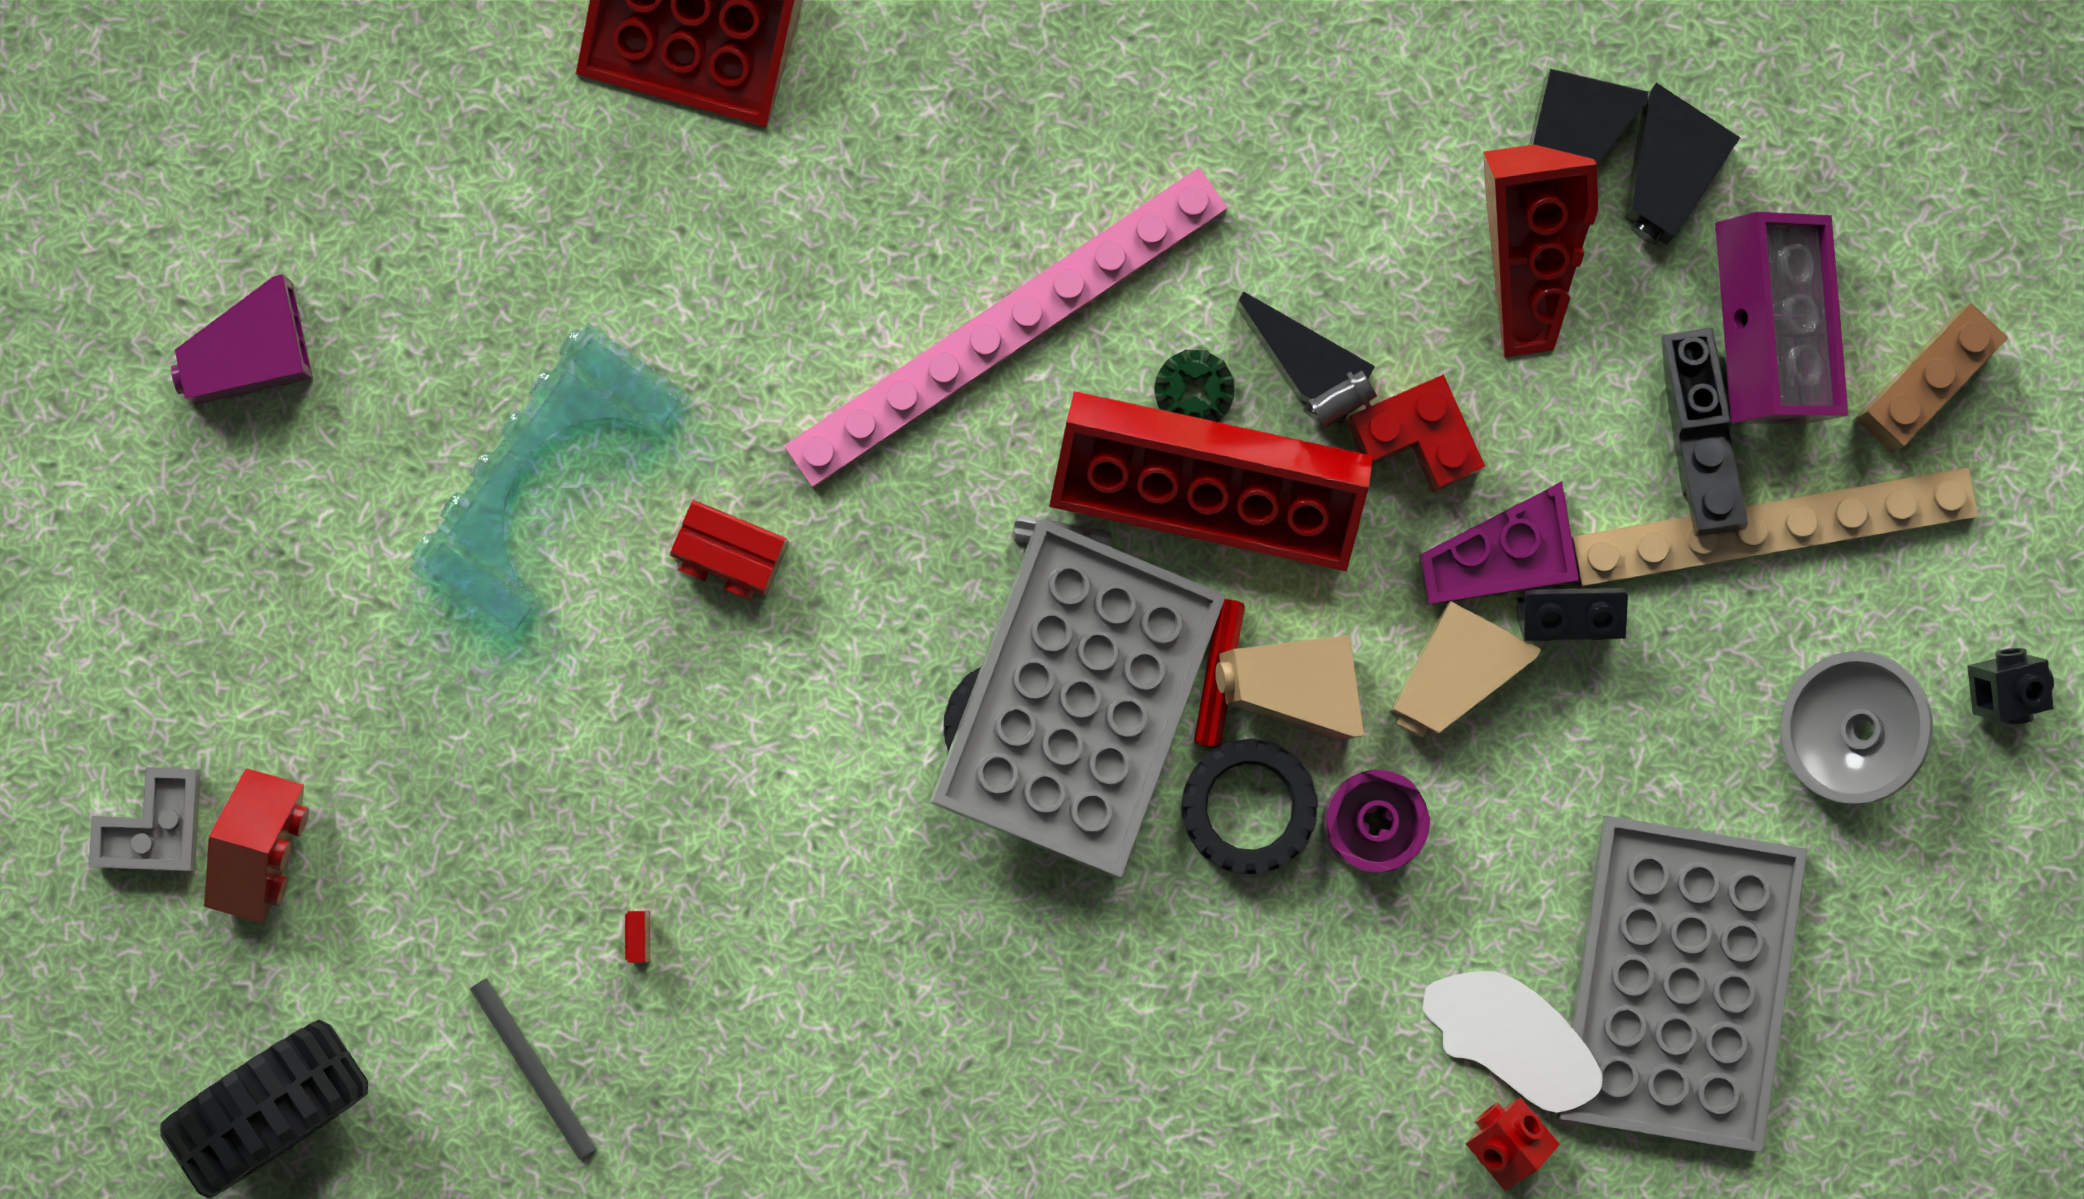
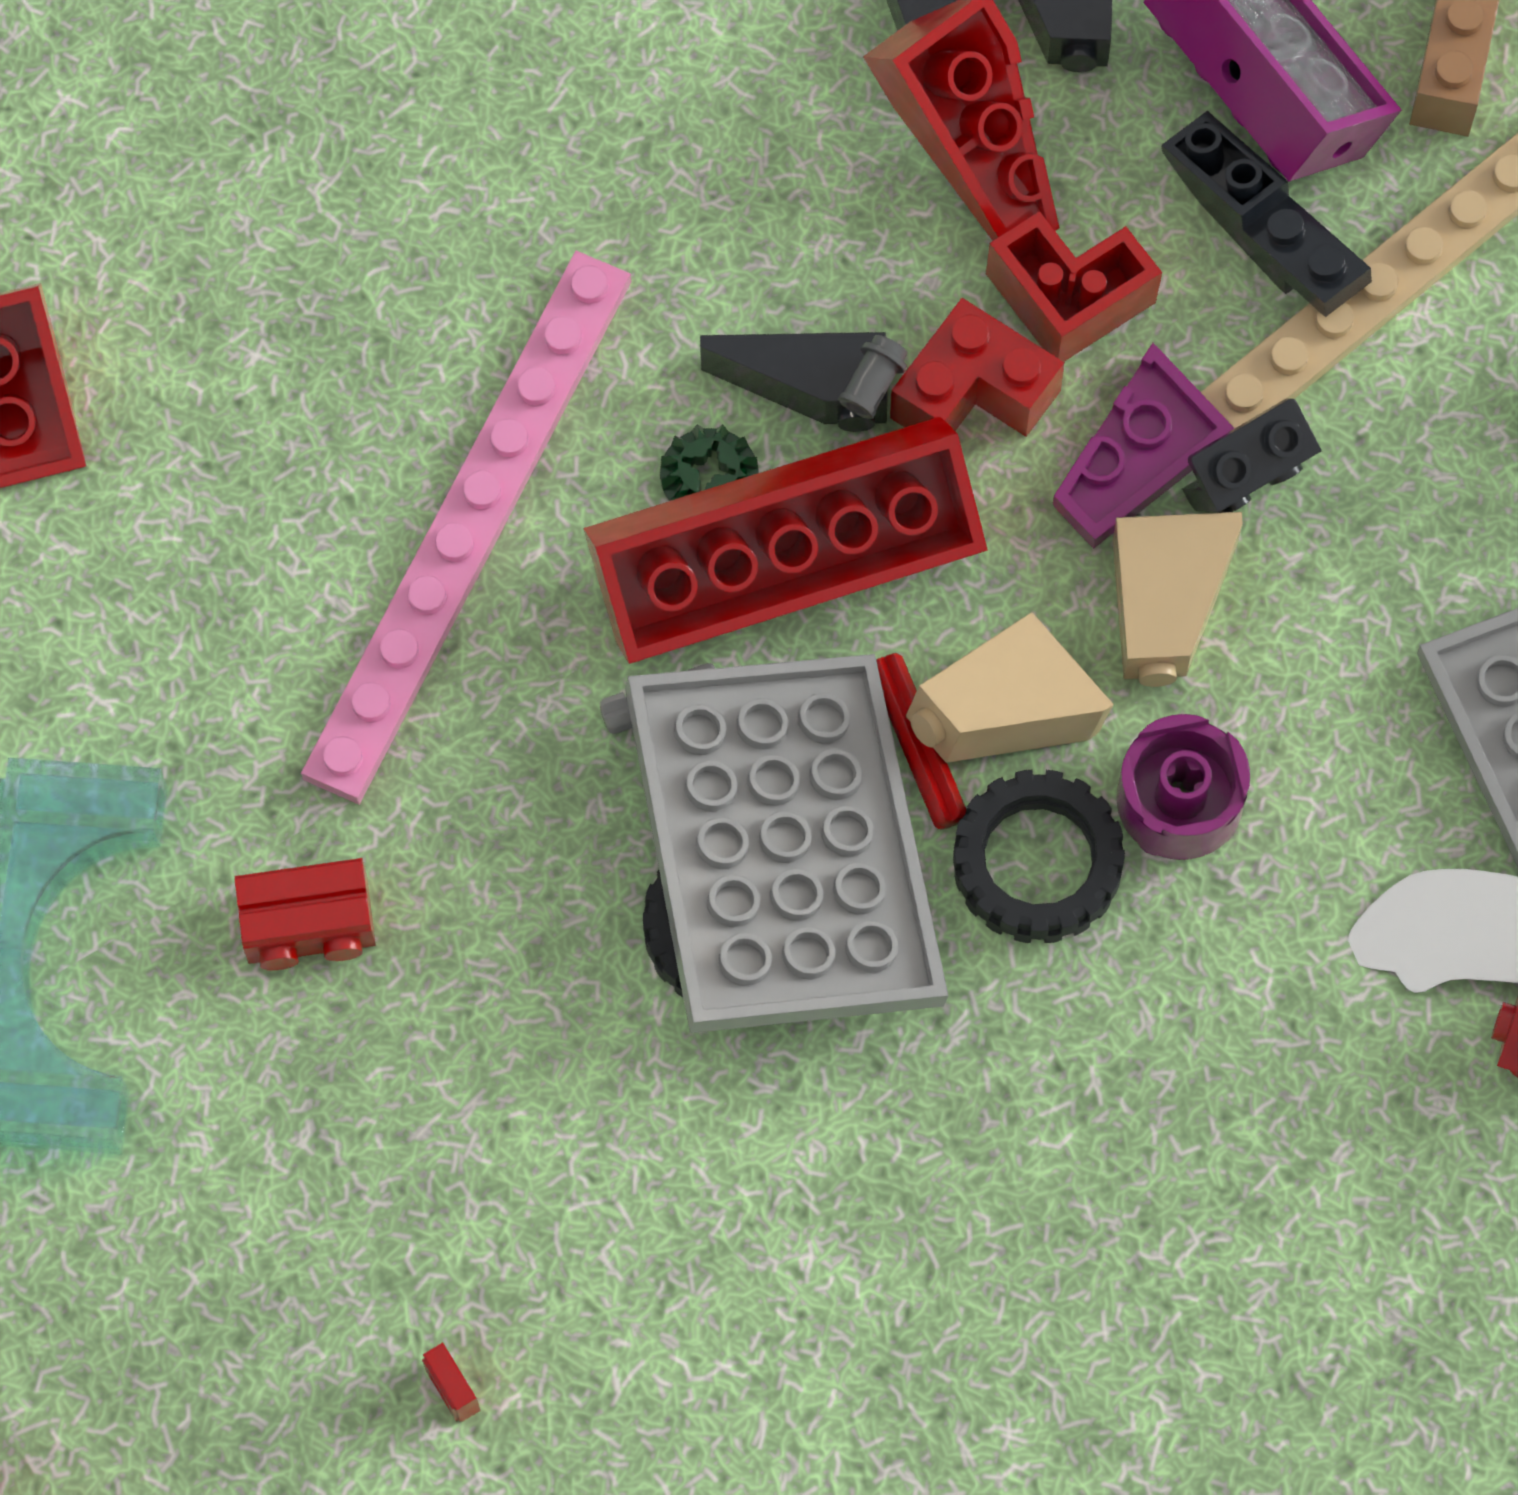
camera: 30 degrees left, 15 degrees down
(1518, 414) = (1070, 298): none -> red brick

